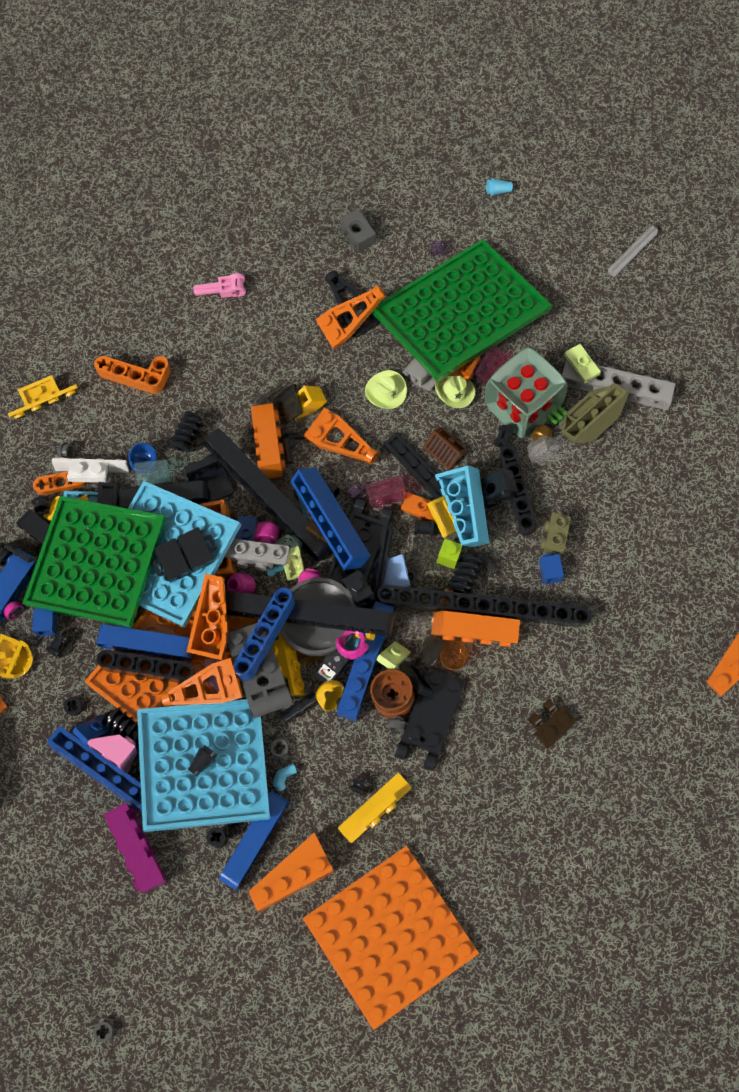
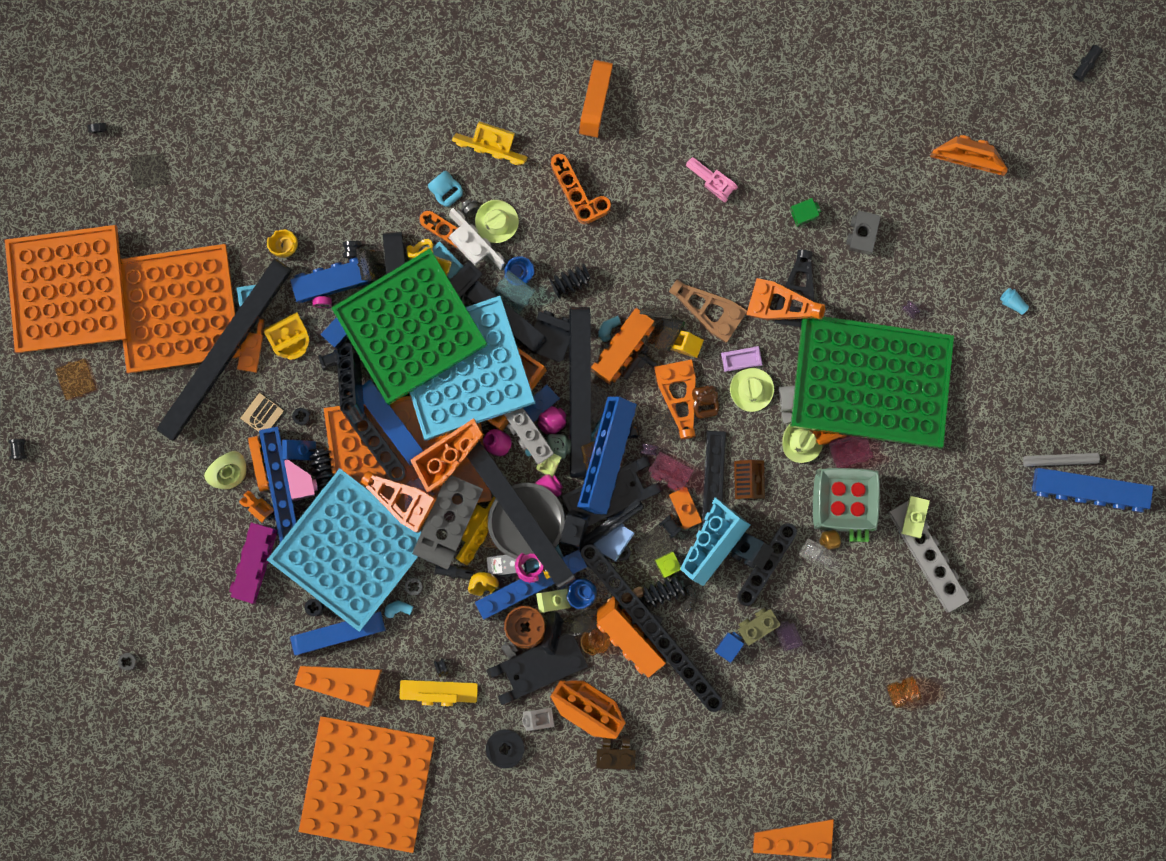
camera: 45 degrees right, 15 degrees up
(30, 454) = (441, 185): none -> medium azure piece
(37, 732) = (262, 413): none -> piece
(41, 503) = (414, 234): black bush -> none
(49, 800) = (226, 471): none -> yellowish green hat
(71, 771) = (258, 458): none -> orange beam
(87, 640) = (350, 383): none -> black beam
(90, 306) = (595, 98): none -> orange beam
(94, 442) = (496, 221): none -> yellowish green hat
(101, 804) = (258, 507): none -> orange plate
(176, 559) = (480, 390): black piece -> none
(202, 759) = (351, 549): black cone -> none
(244, 442) = (606, 327): none -> medium azure arm
(264, 643) = (482, 506): blue beam -> none
(305, 252) = (805, 211): none -> green brick
(324, 362) = (728, 321): none -> medium nougat plate
(358, 378) = (741, 359): none -> lavender tile
(359, 421) = (705, 396): none -> reddish brown piece
(379, 128) = (971, 154): none -> orange wedge
(393, 23) = (1087, 63): none -> black pin
(409, 631) = (582, 593): none -> blue hair
(442, 516) = (692, 525): yellow tile -> none
(456, 804) = (511, 739): none -> black plate
(469, 754) = (538, 719): none -> light grey bracket
(499, 709) = (588, 709): none -> orange wedge
(504, 436) = (800, 514): black bush -> none
(584, 521) = (788, 636): none -> clear purple slope
(594, 413) = (882, 563): olive wedge -> none
(672, 248) = (1091, 488): none -> blue brick
(699, 483) = (904, 692): none -> clear orange wheel

